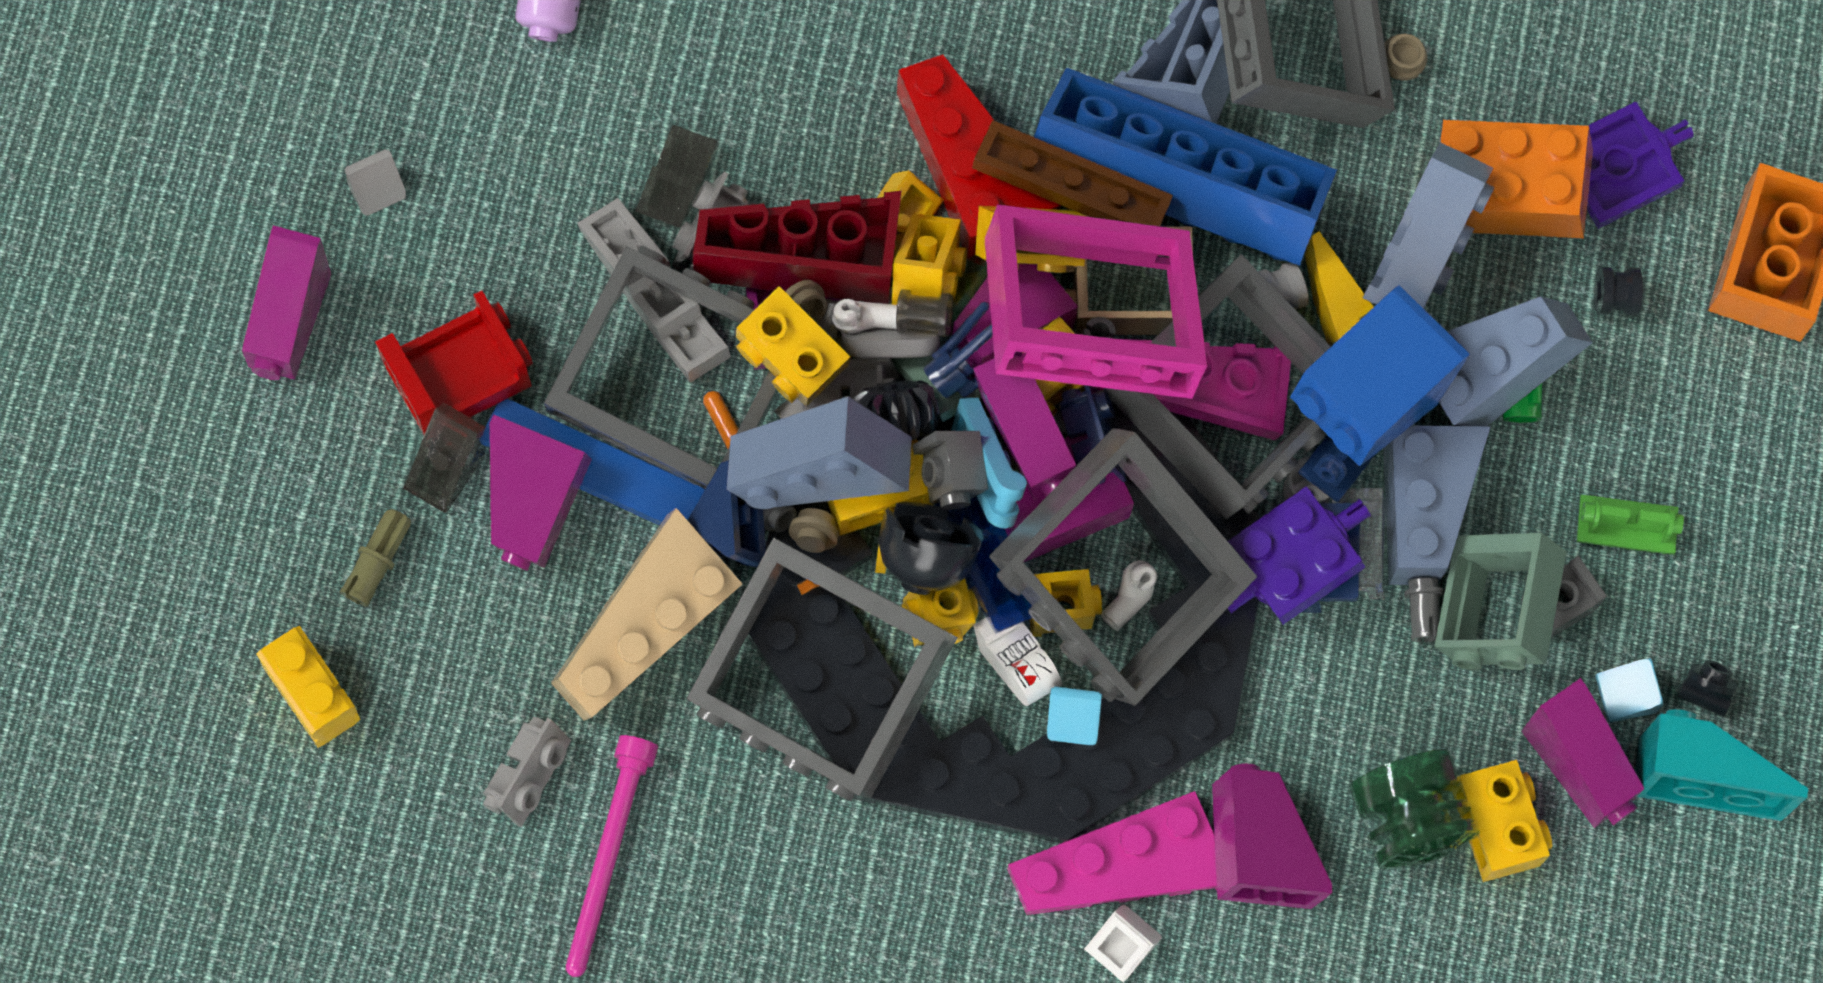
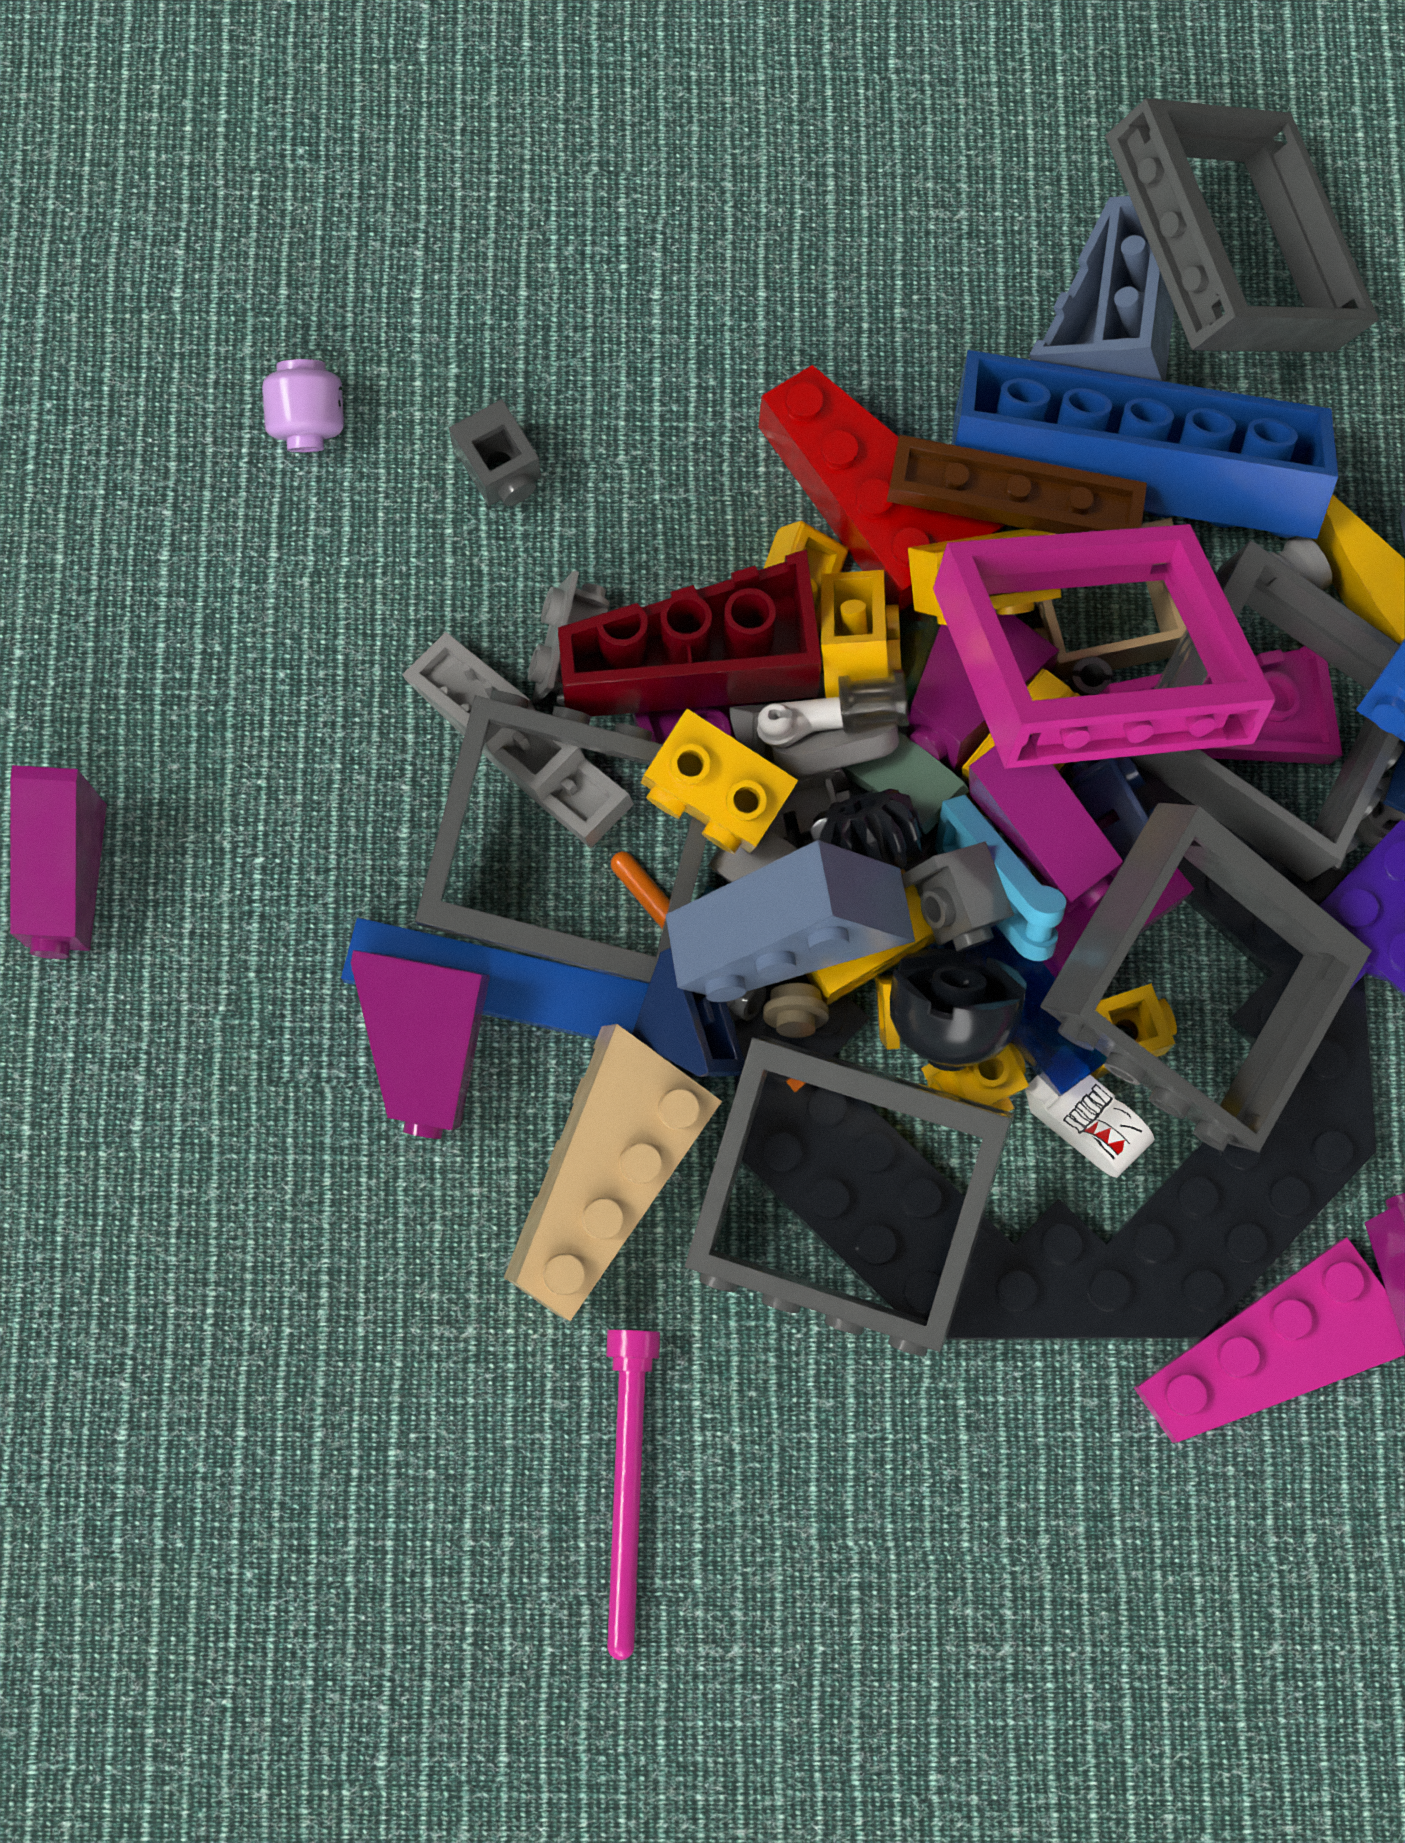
camera: 10 degrees left, 5 degrees up
(308, 686) = (193, 1356): yellow brick -> none
(375, 182) = (135, 676): light grey slope -> none
(376, 558) = (244, 1162): olive axle -> none
(445, 458) = (304, 1015): clear smoke slope -> none
(458, 364) = (293, 893): red panel -> none
(518, 791) = (494, 1430): light grey hinge -> none
(677, 176) = (513, 589): clear smoke slope -> none
(685, 59) = (495, 437): none -> dark grey brick
(810, 298) = (721, 710): dark tan plate -> none
(951, 365) = (926, 766): dark blue plant -> none
(1074, 716) = (1180, 1179): medium azure slope -> none
(1123, 942) = (1304, 1453): white slope -> none
(1134, 592) = (1208, 994): white arm -> none
(1405, 56) = (1371, 250): dark tan plate -> none

